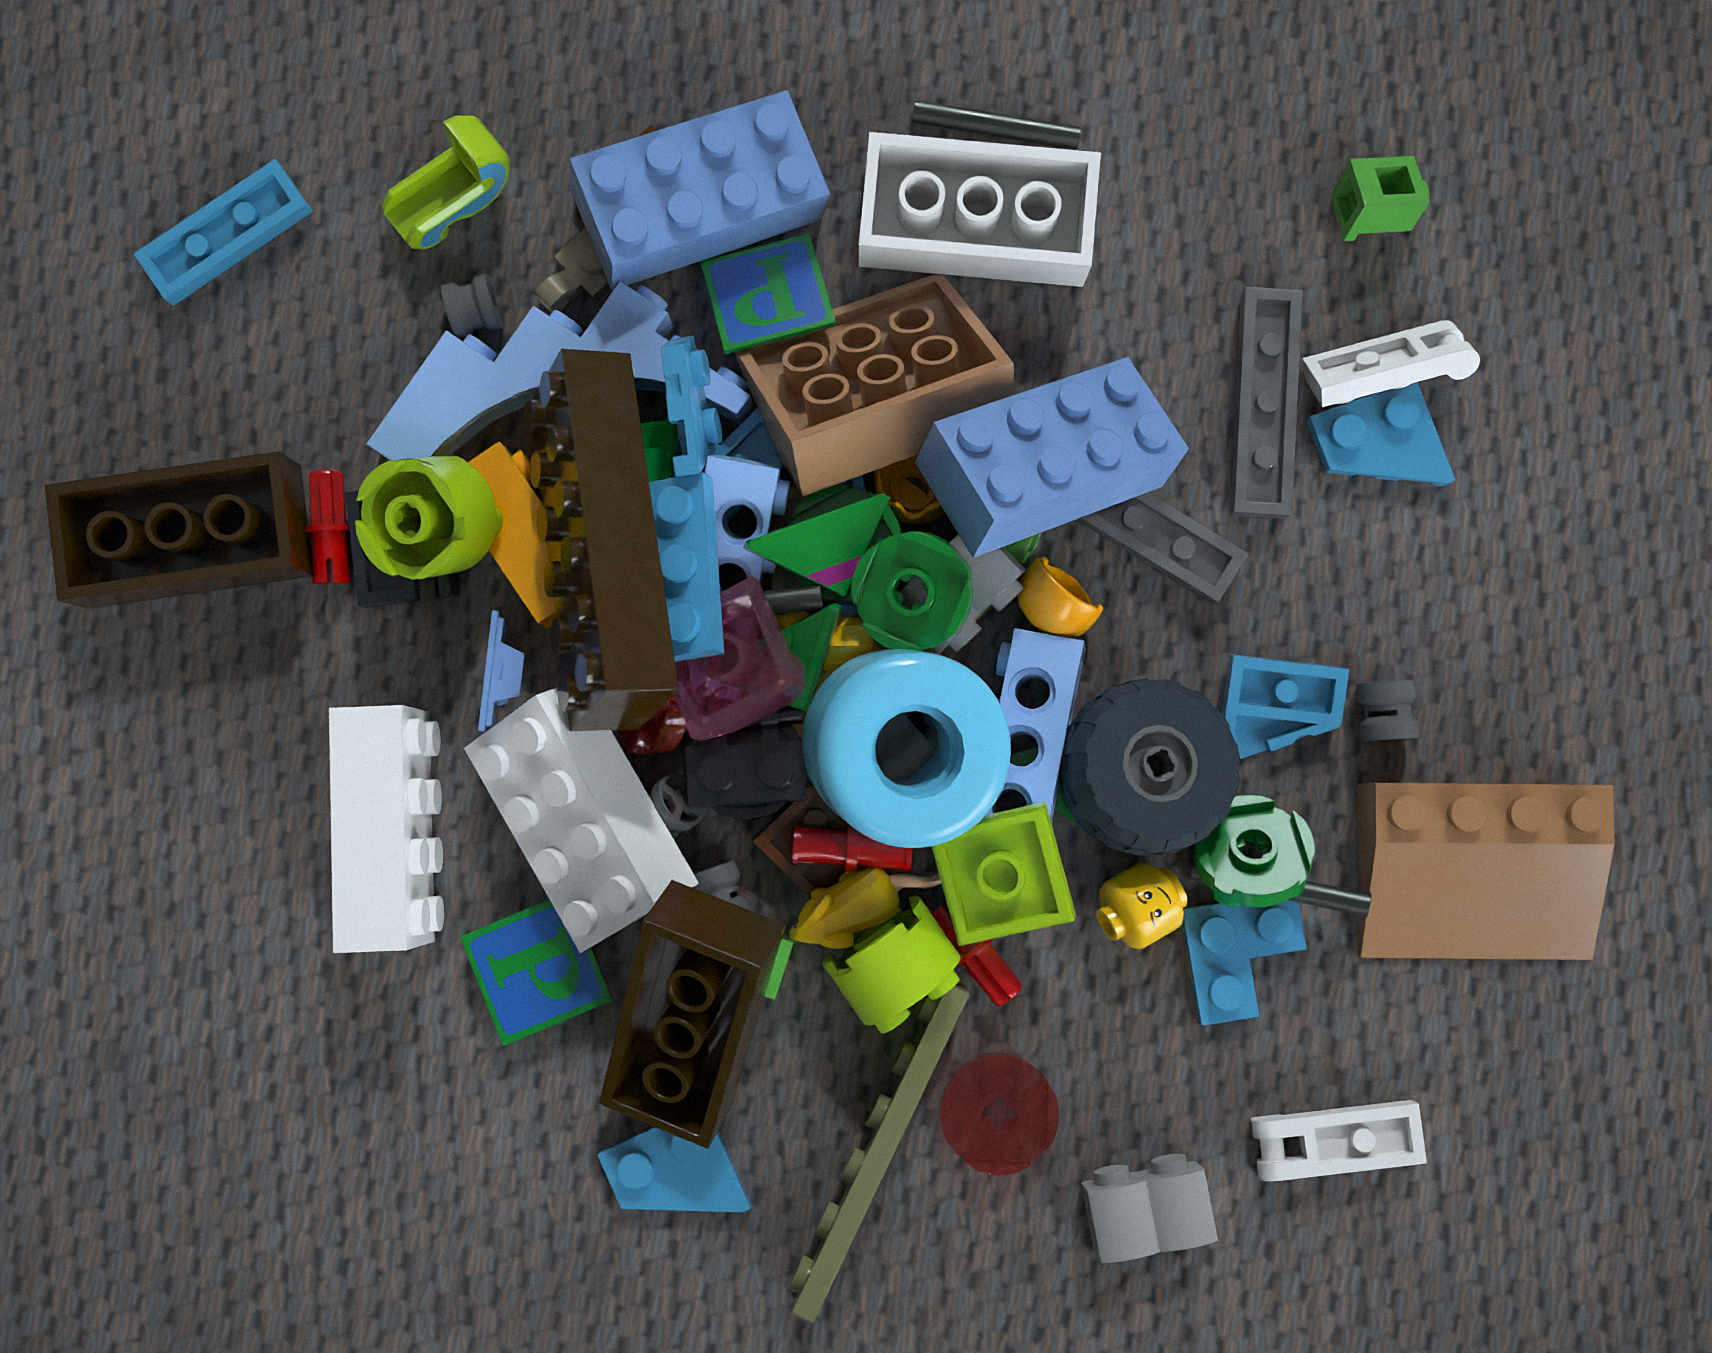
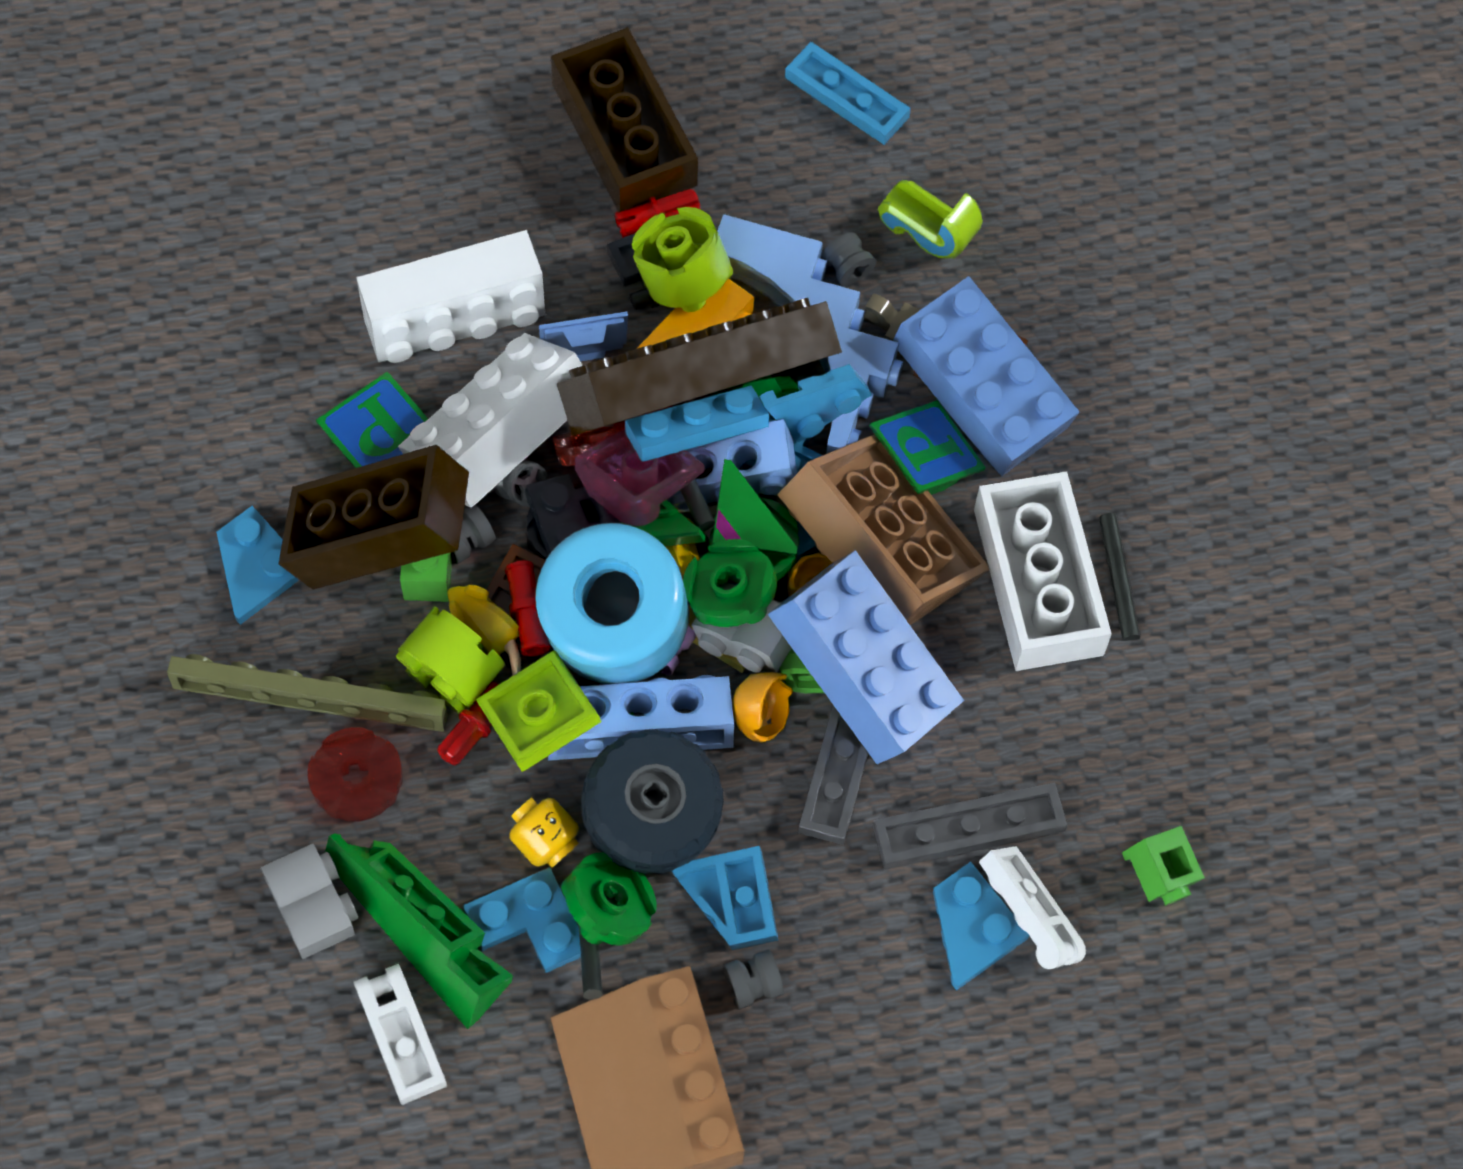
camera: 70 degrees right, 20 degrees down
(1208, 1080) = (422, 925): none -> green wedge

